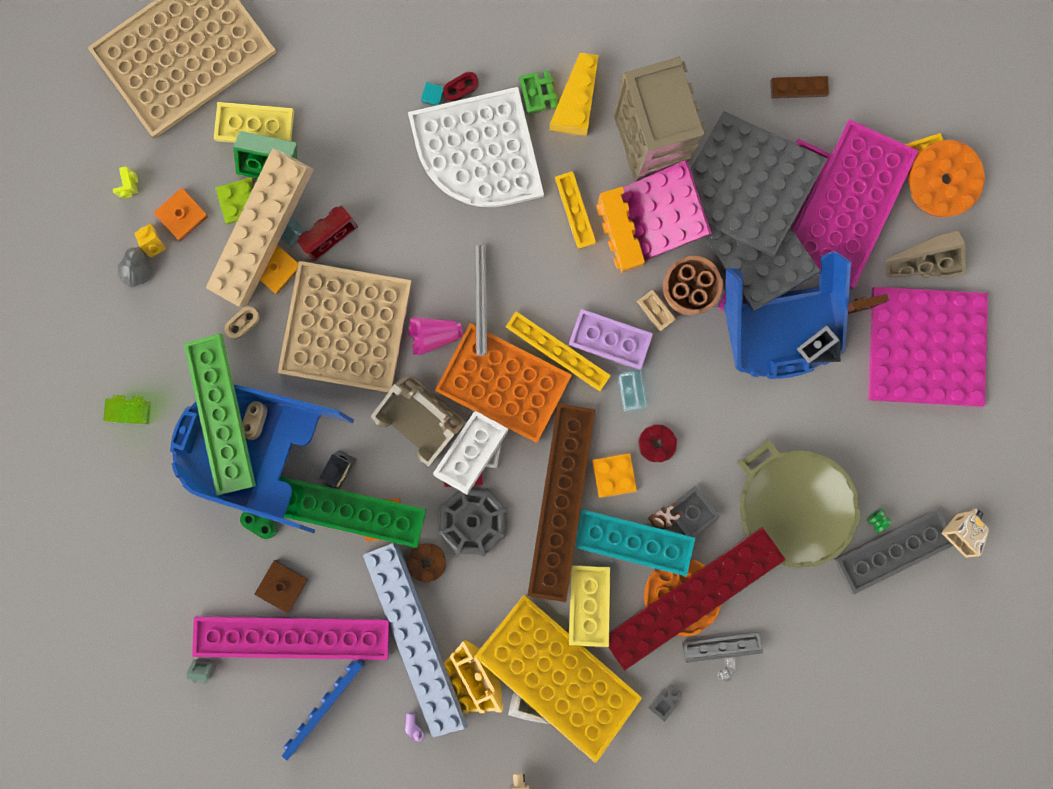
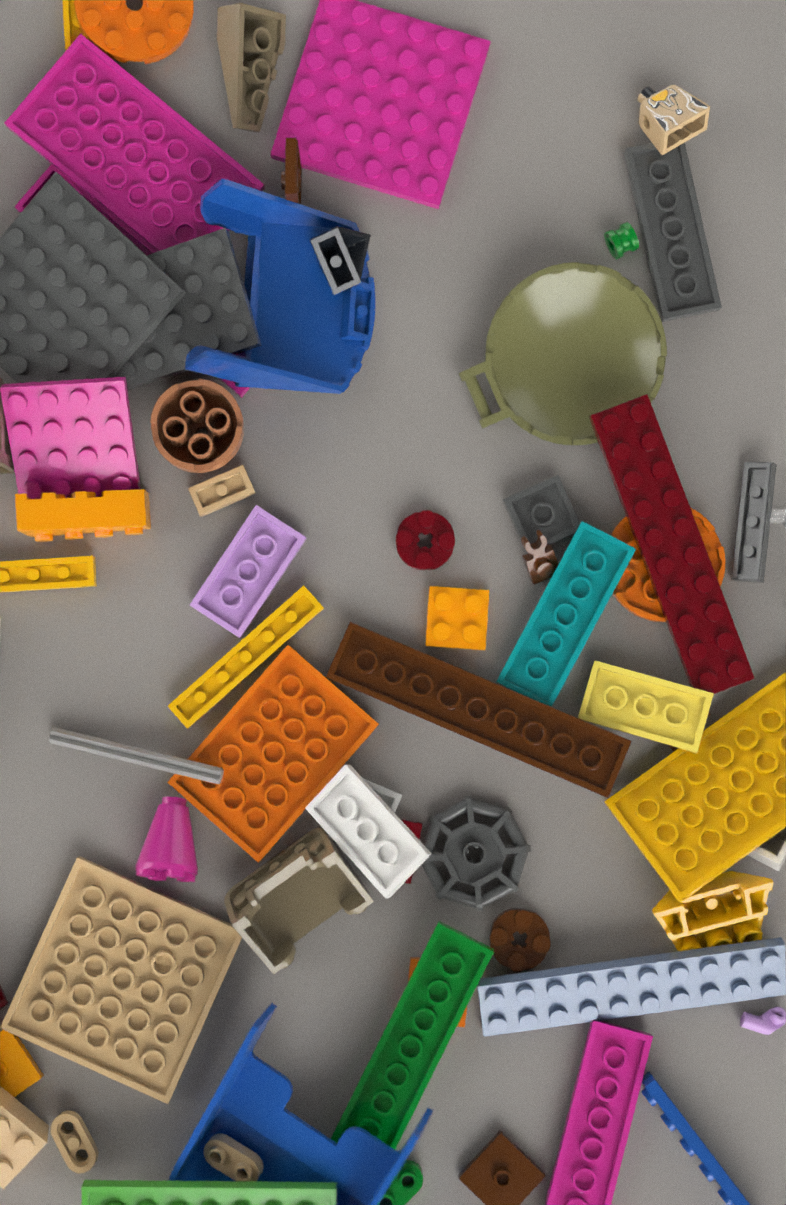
camera: 75 degrees left, 0 degrees up
(337, 469) = (342, 1045): black torso -> none
(631, 390) = (335, 558): clear light blue slope -> none

